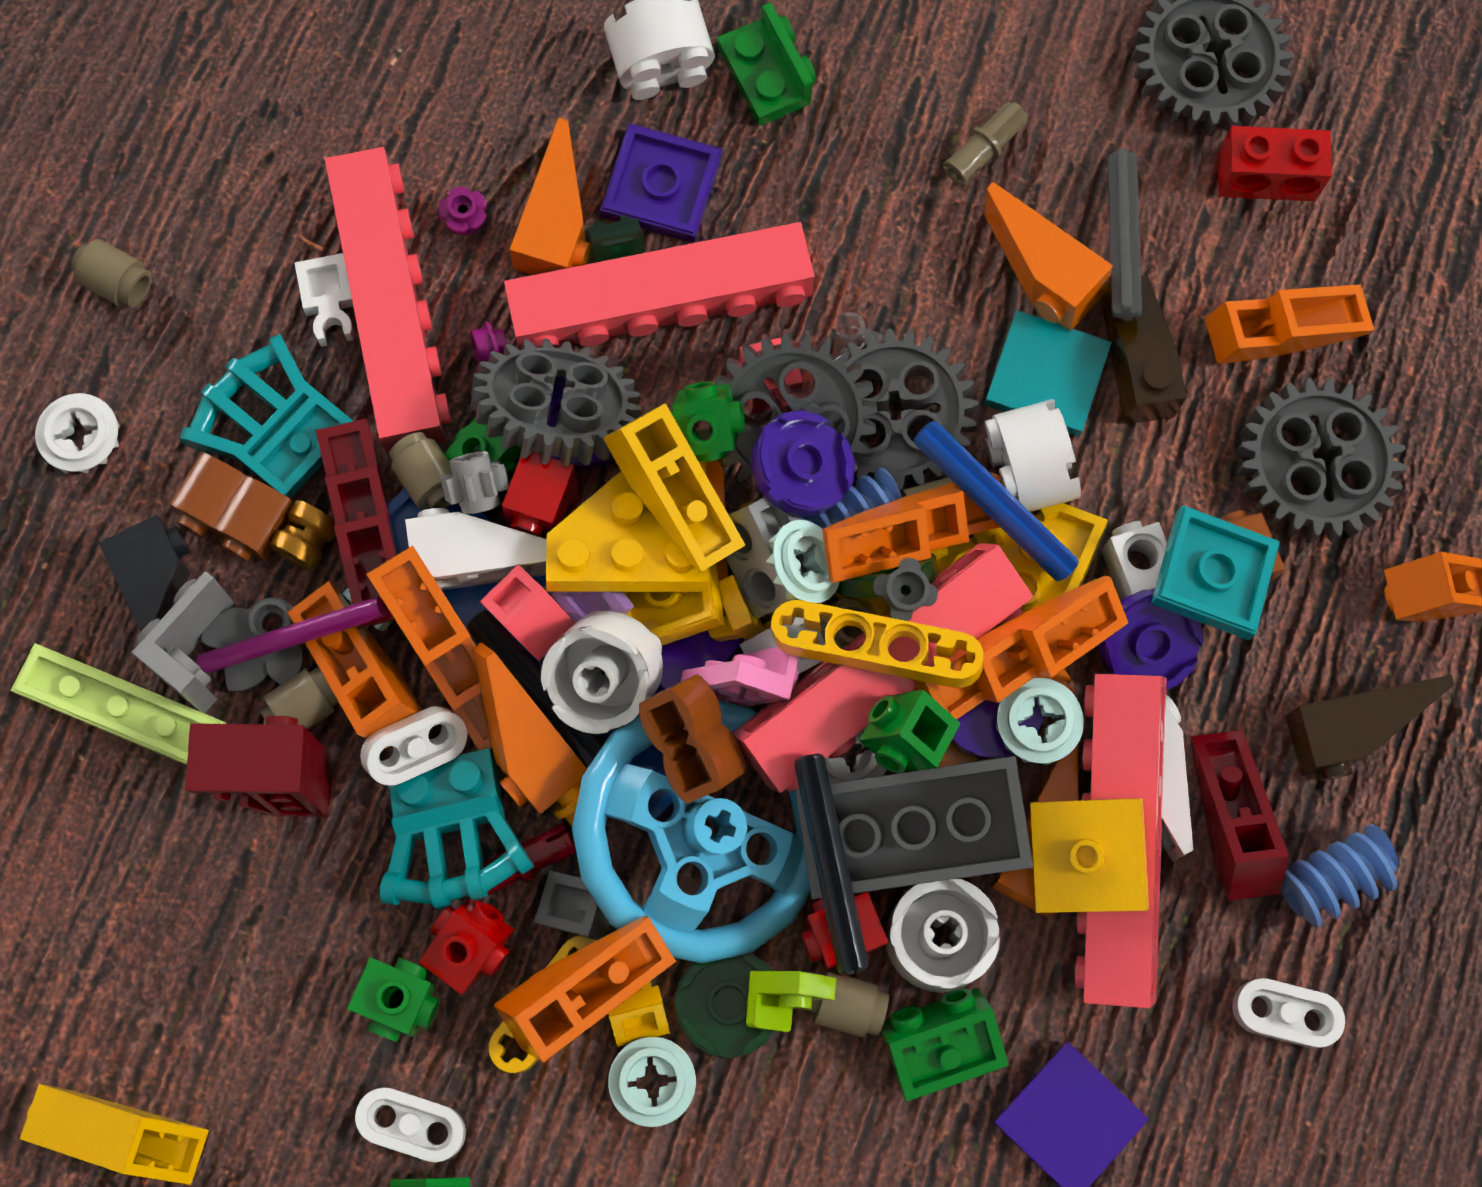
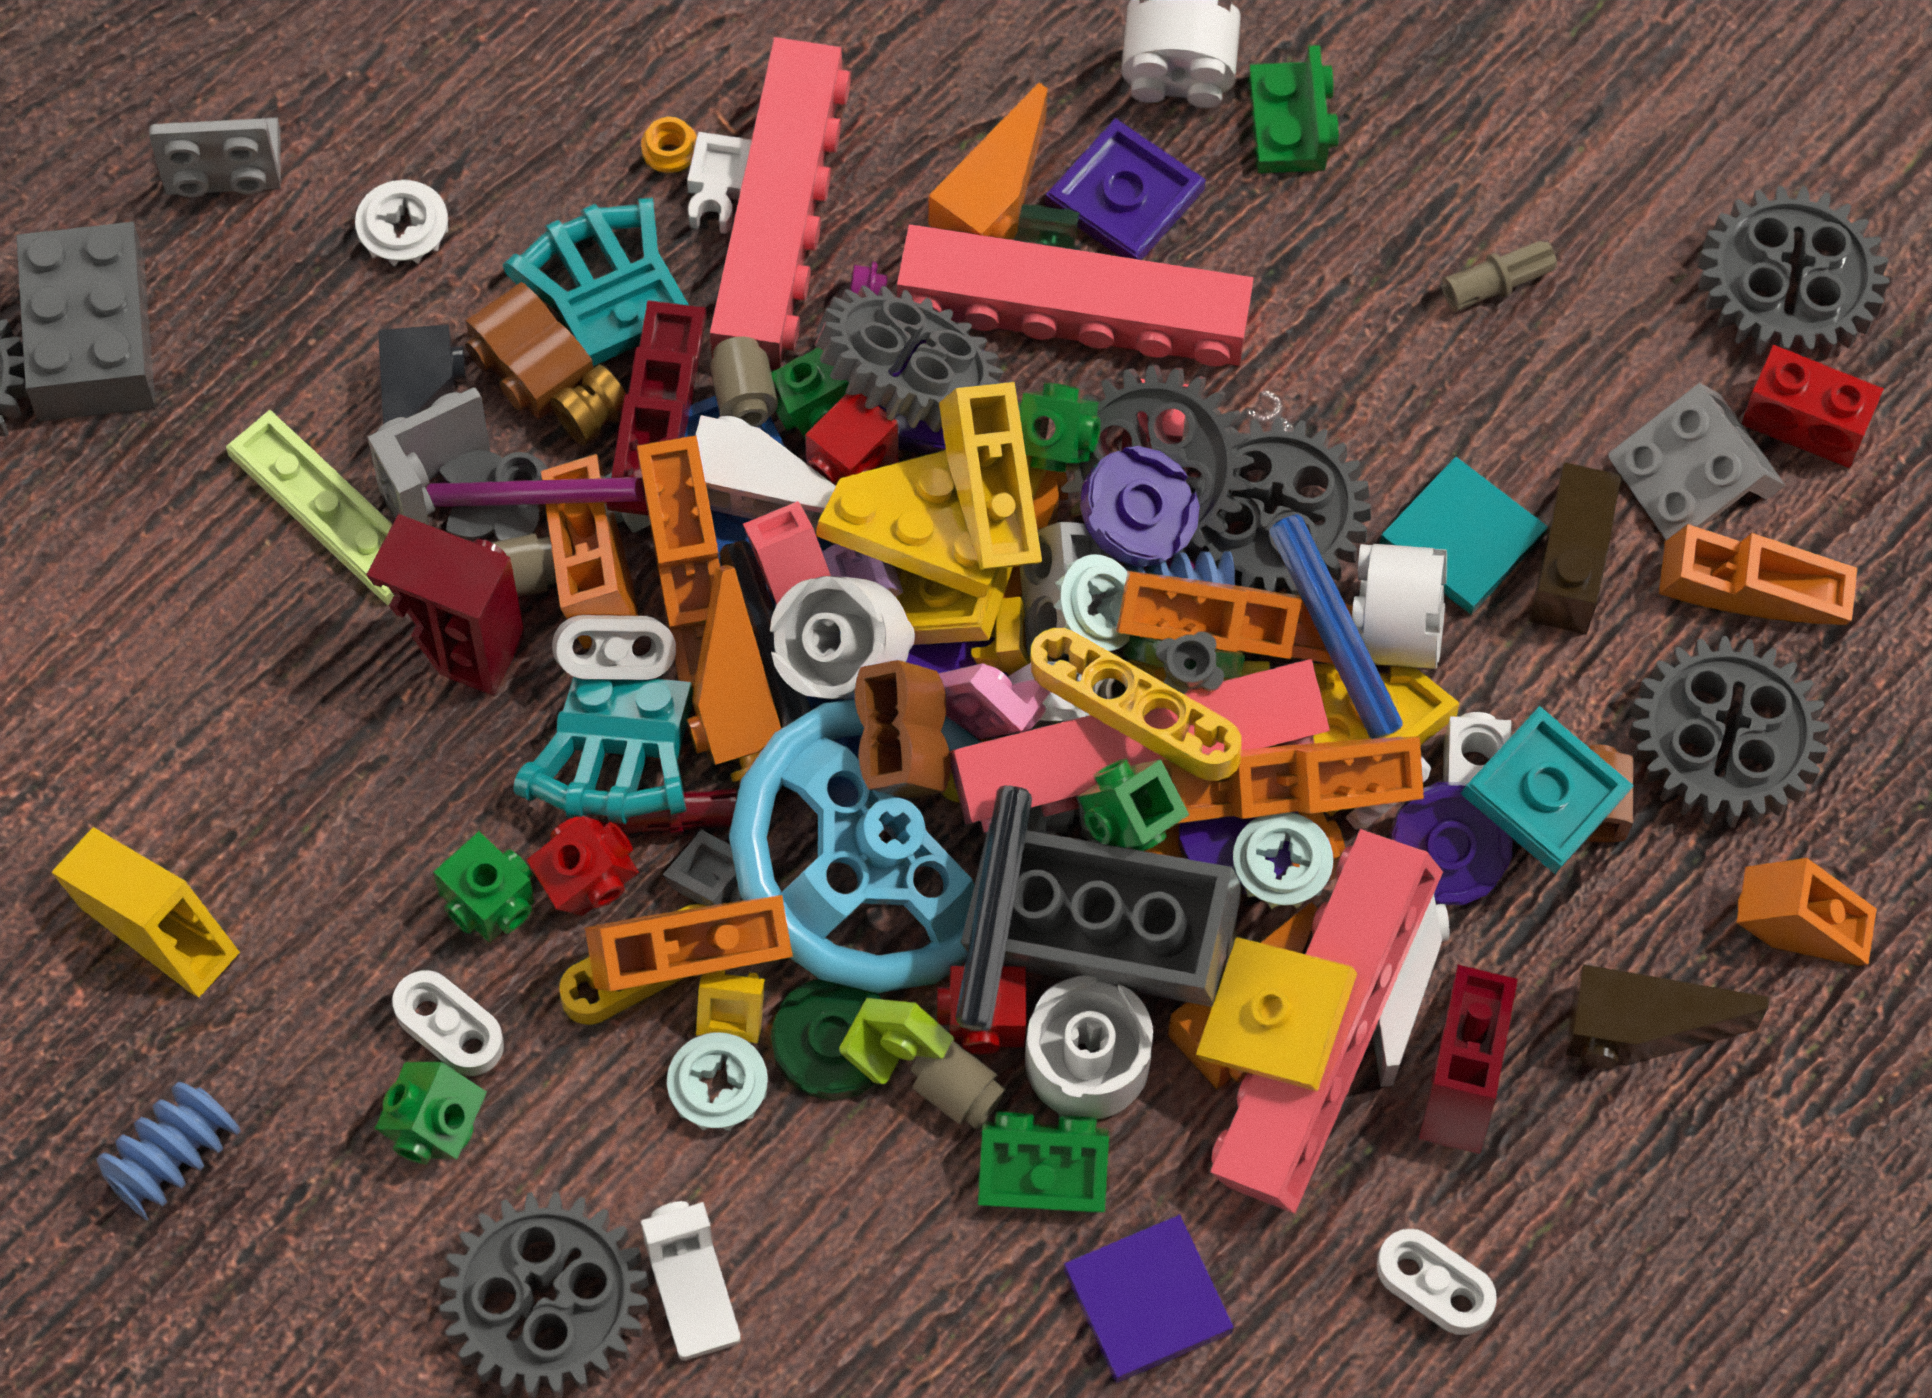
camera: 25 degrees right, 10 degrees down
(111, 273) = (504, 76): dark tan brick -> none
(270, 269) = (668, 132): none -> light orange plate
(466, 222) = (894, 157): magenta plate -> none
(474, 482) = (788, 403): light grey gear -> none
(1052, 266) = (1514, 426): orange slope -> none
(1124, 235) = (1608, 419): dark grey axle -> none
(1202, 247) = (1693, 462): none -> light grey bracket
(1340, 874) = (1554, 1161): medium blue piece -> none

